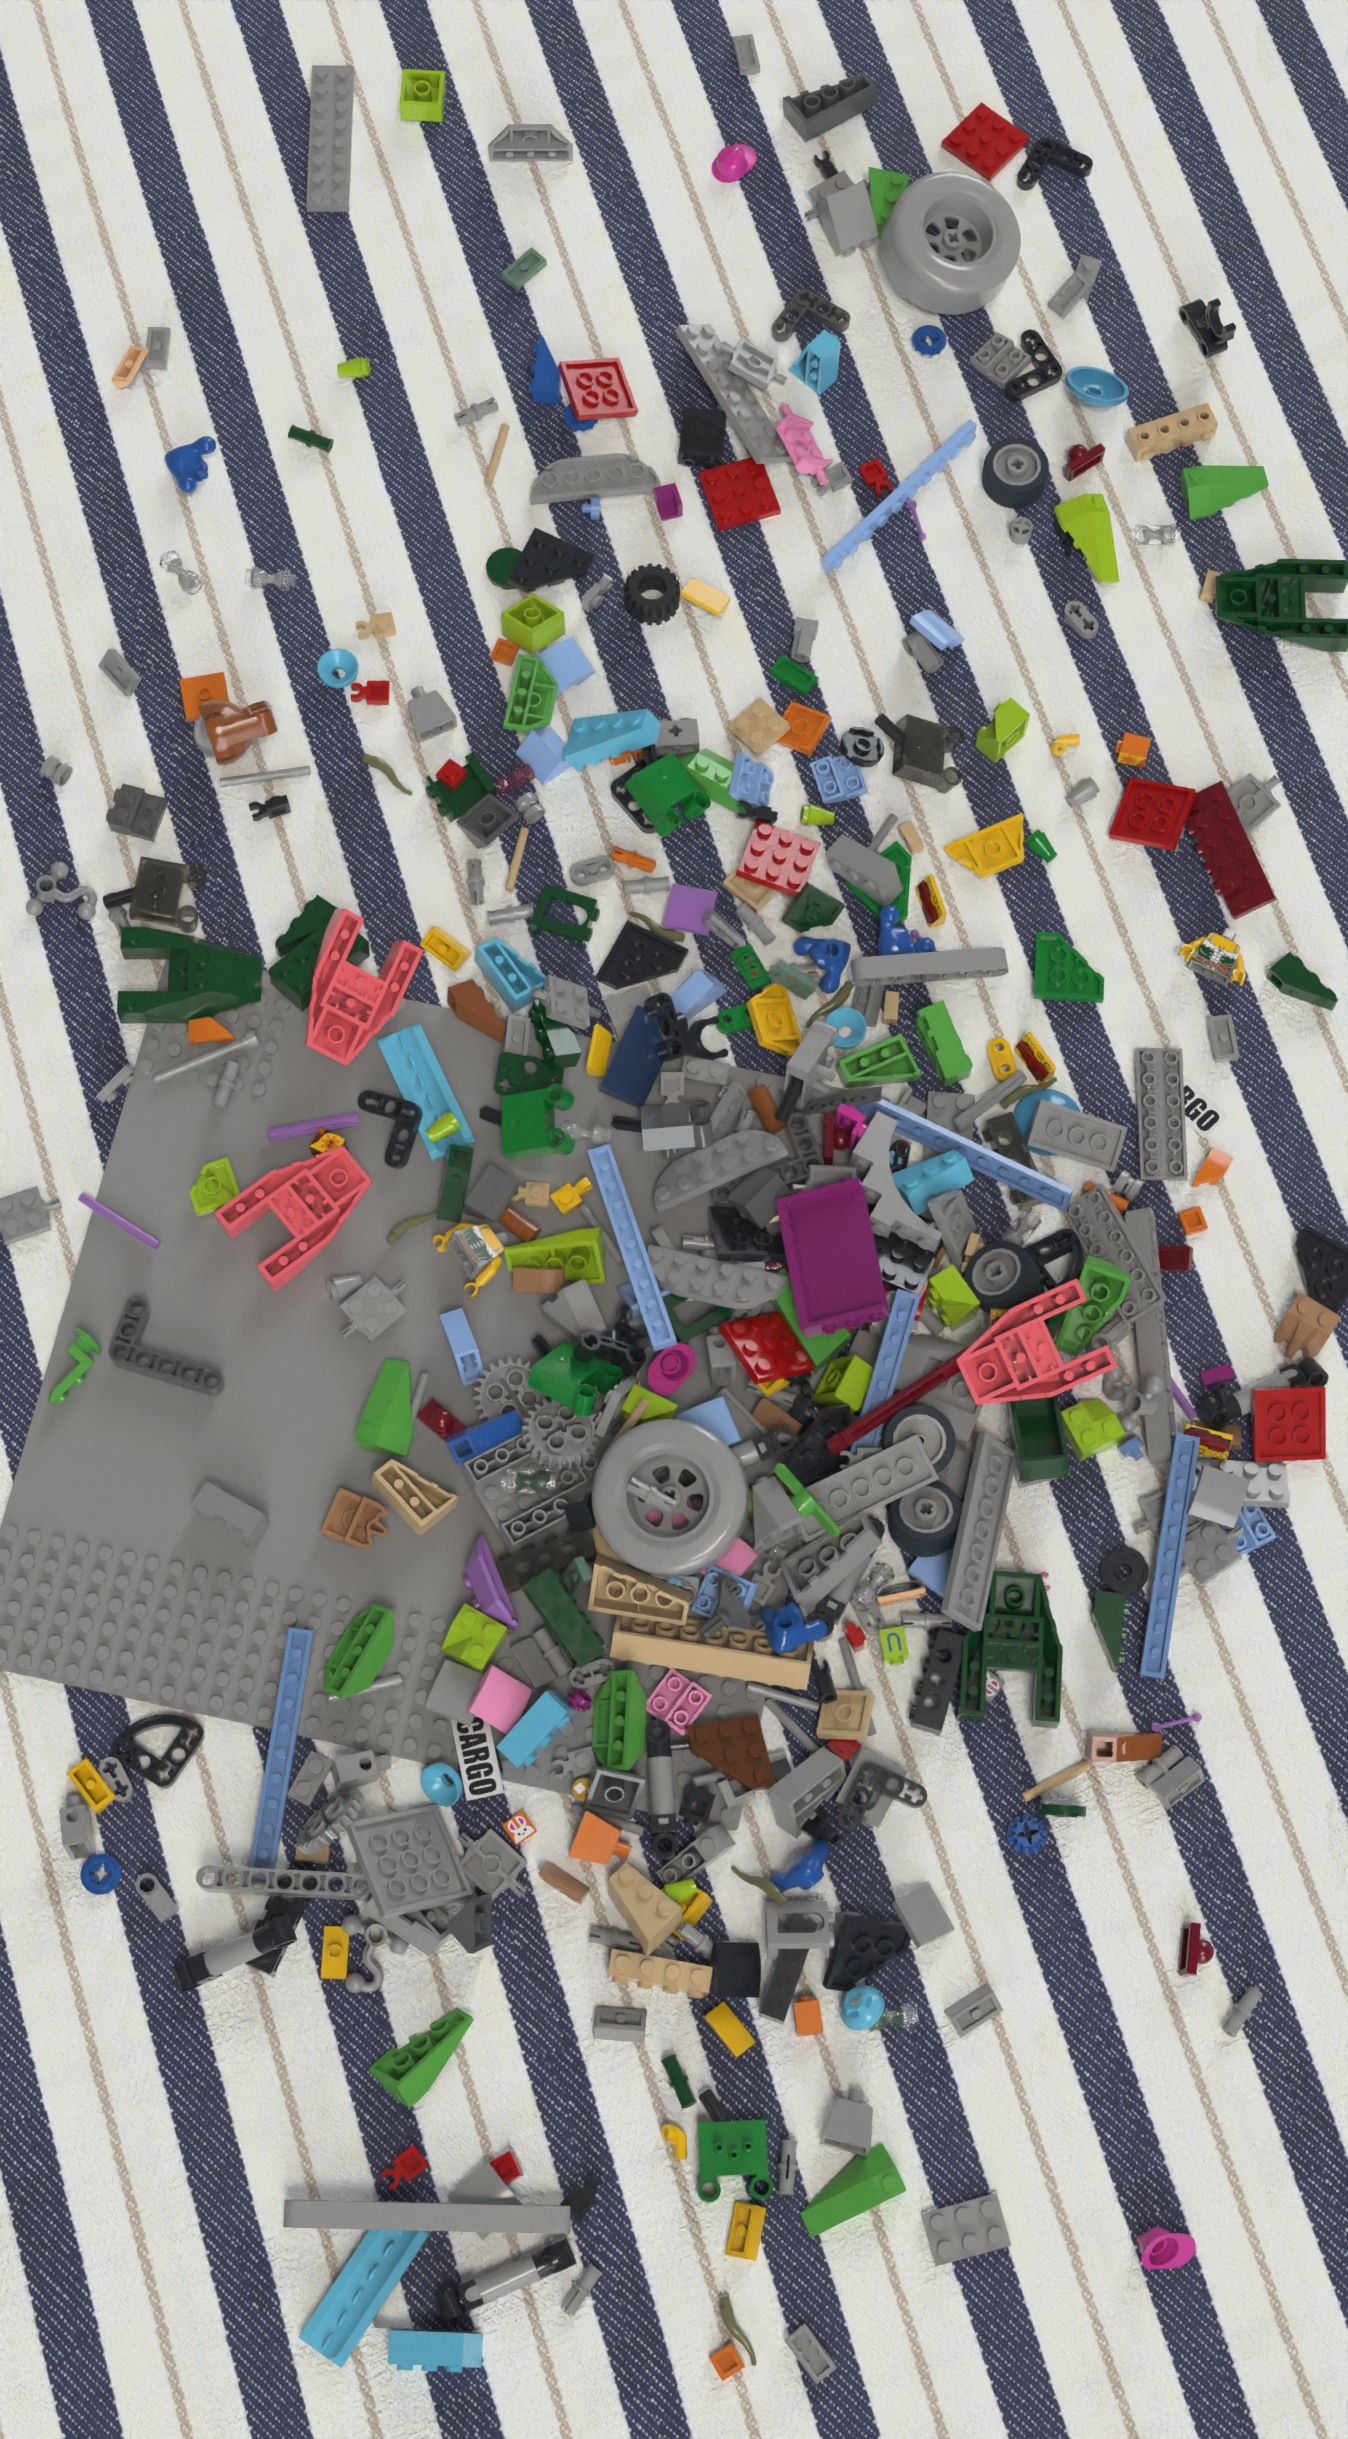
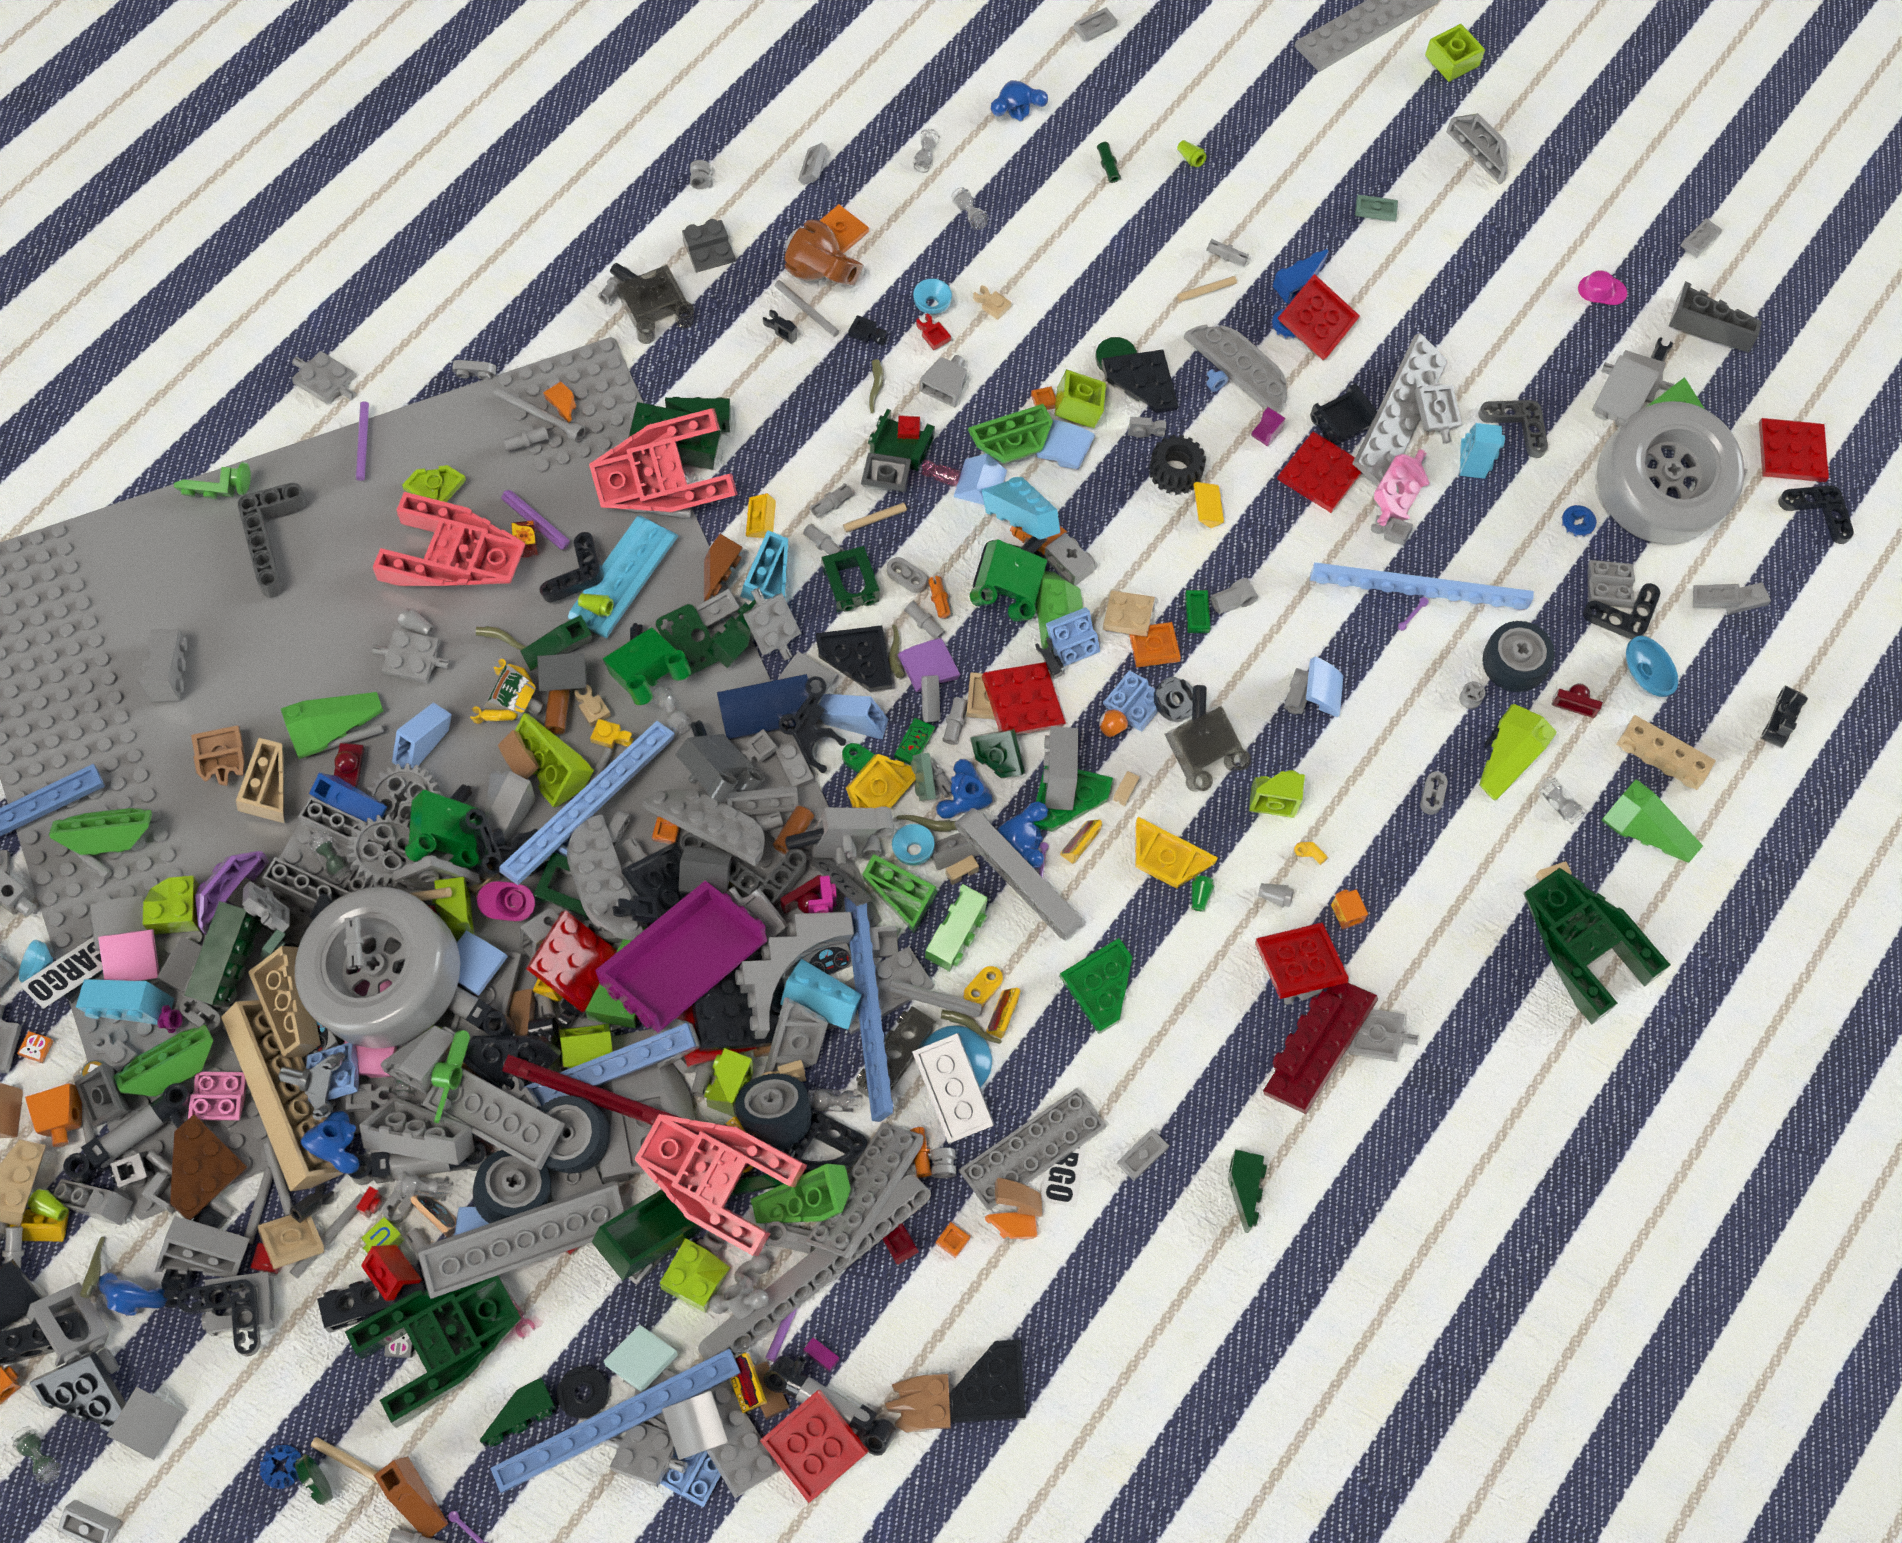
camera: 50 degrees right, 5 degrees down
(59, 871) = (620, 226): light grey piece -> none
(129, 366) = (1062, 14): light nougat slope -> none
(201, 978) = (603, 371): dark green wedge -> none
(327, 745) = (865, 329): none -> black plate
(530, 808) = (923, 499): light grey wheel -> none
(550, 1554) = (265, 905): none -> light grey plate
(598, 1051) = (751, 673): yellow slope -> none
(691, 1209) = (665, 831): none -> orange tile
(767, 1262) = (641, 908): none -> black plate
(813, 815) = (1085, 703): lime cone -> none
(849, 807) = (1113, 722): none -> orange piece
(866, 2012) = (29, 1429): medium azure piece -> none
(875, 475) = (1422, 557): red plate -> none
(883, 832) = (1106, 765): light grey piece -> none
(931, 1651) = (389, 1270): none -> red panel
(1072, 1397) = (712, 1243): none -> light grey plate
(1130, 1508) = (640, 1358): none -> light aqua tile
(1132, 1448) = (700, 1323): medium blue tile -> none
(1194, 1149) = (1017, 1194): none -> medium nougat slope
(1216, 957) = (1212, 1098): torso -> none

